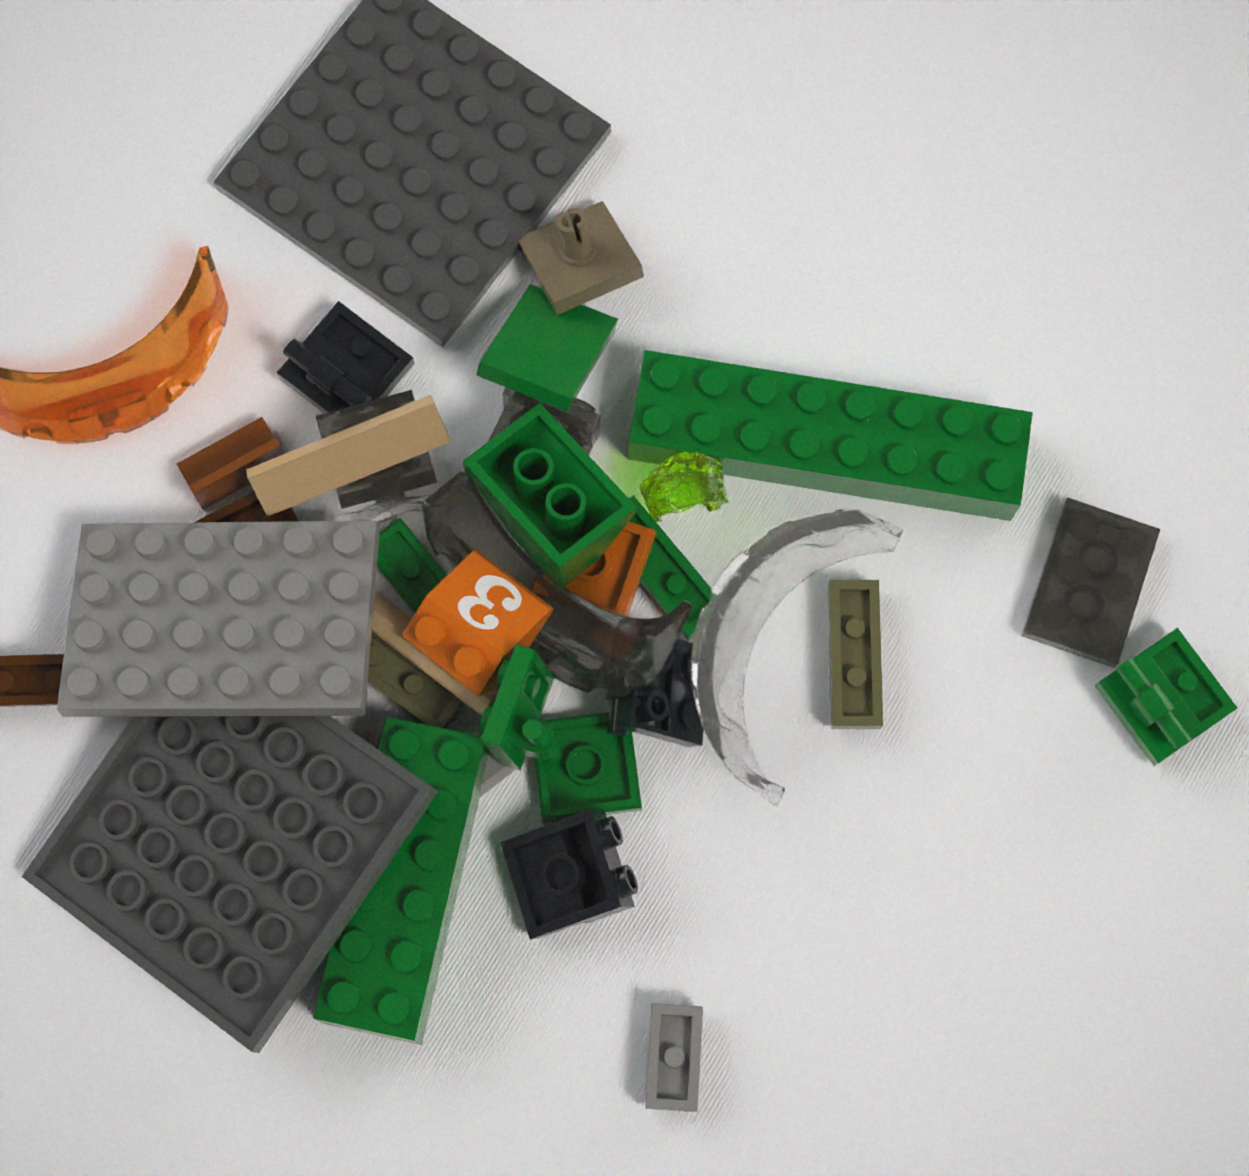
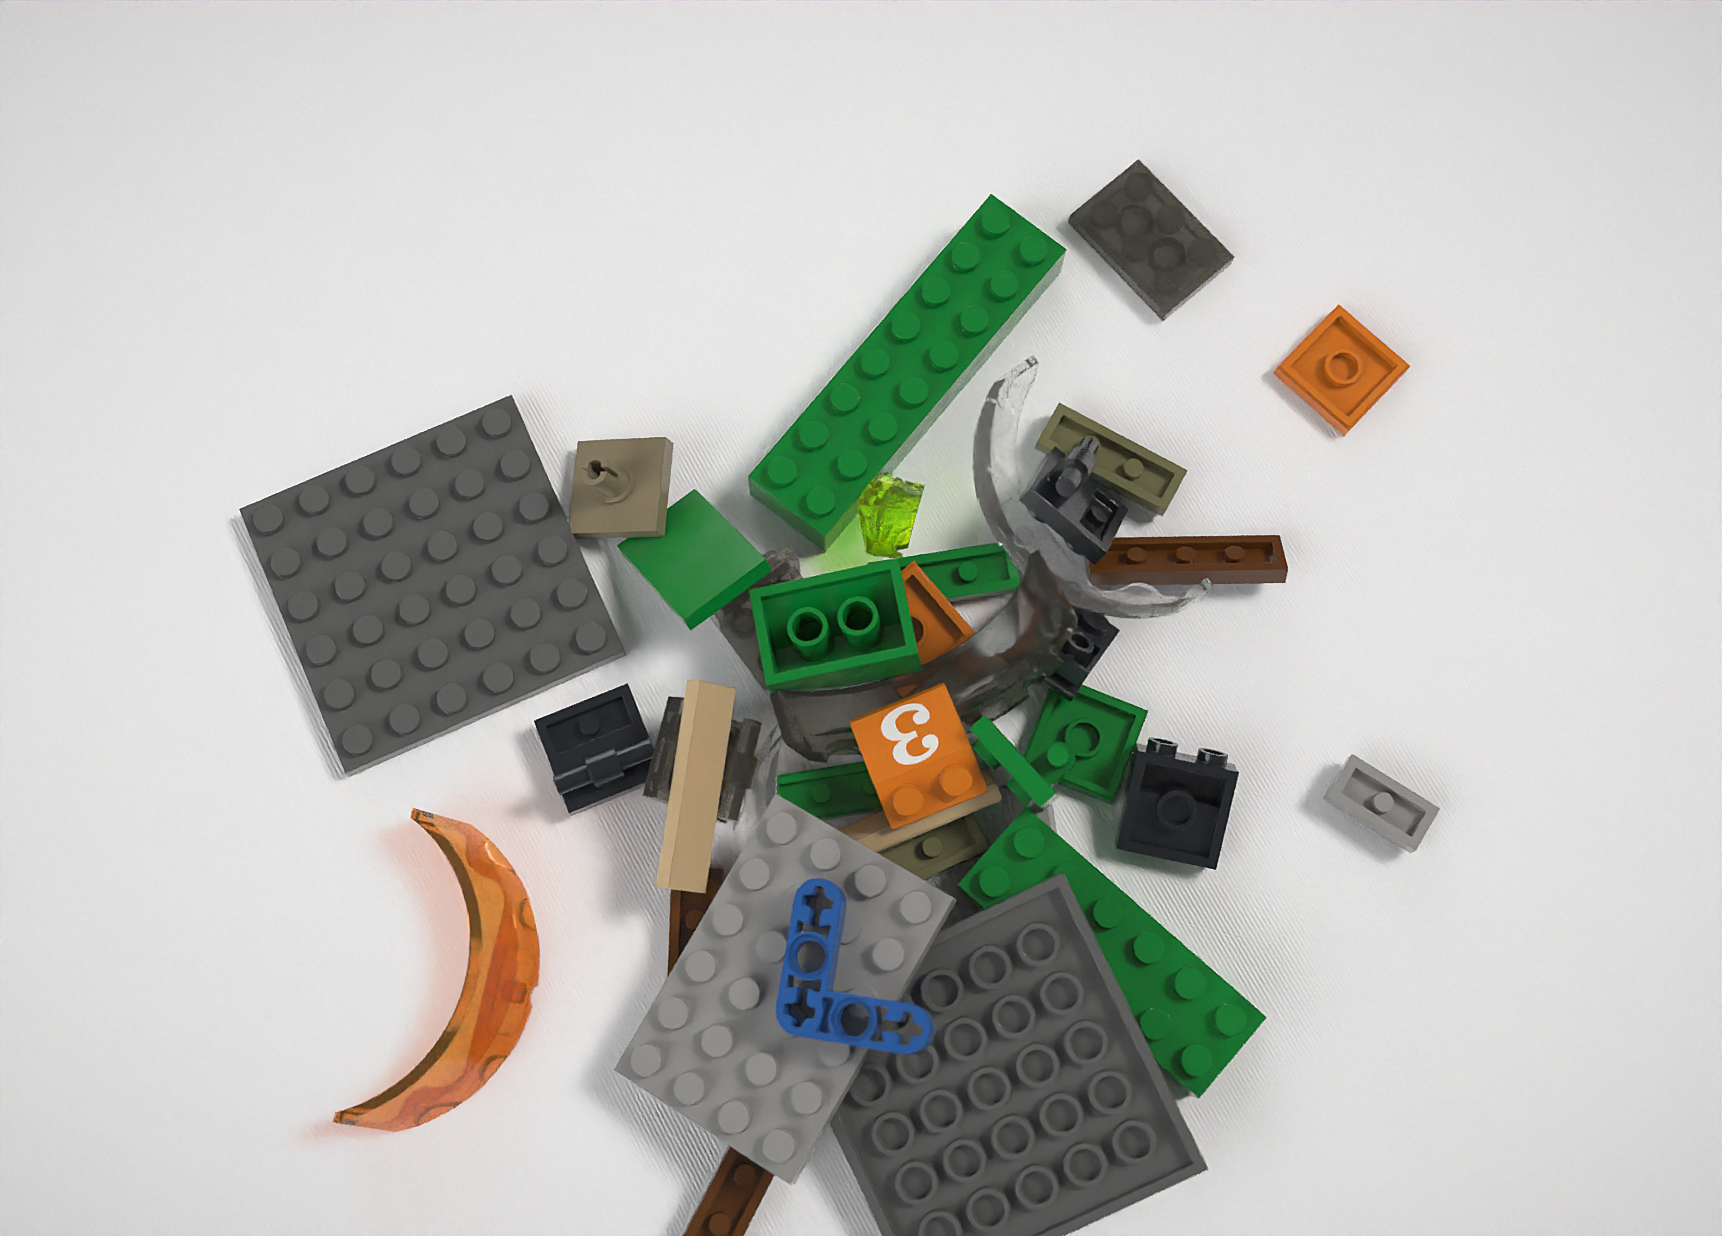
camera: 60 degrees left, 0 degrees up
(217, 650) = (829, 1003): none -> blue beam
(223, 465) = (627, 900): dark orange panel -> none
(788, 637) = (1074, 502): none -> black plate
(798, 767) = (1191, 560): none -> reddish brown plate
(1070, 819) = (1341, 369): none -> orange tile
(1165, 696) = (1283, 236): green plate -> none

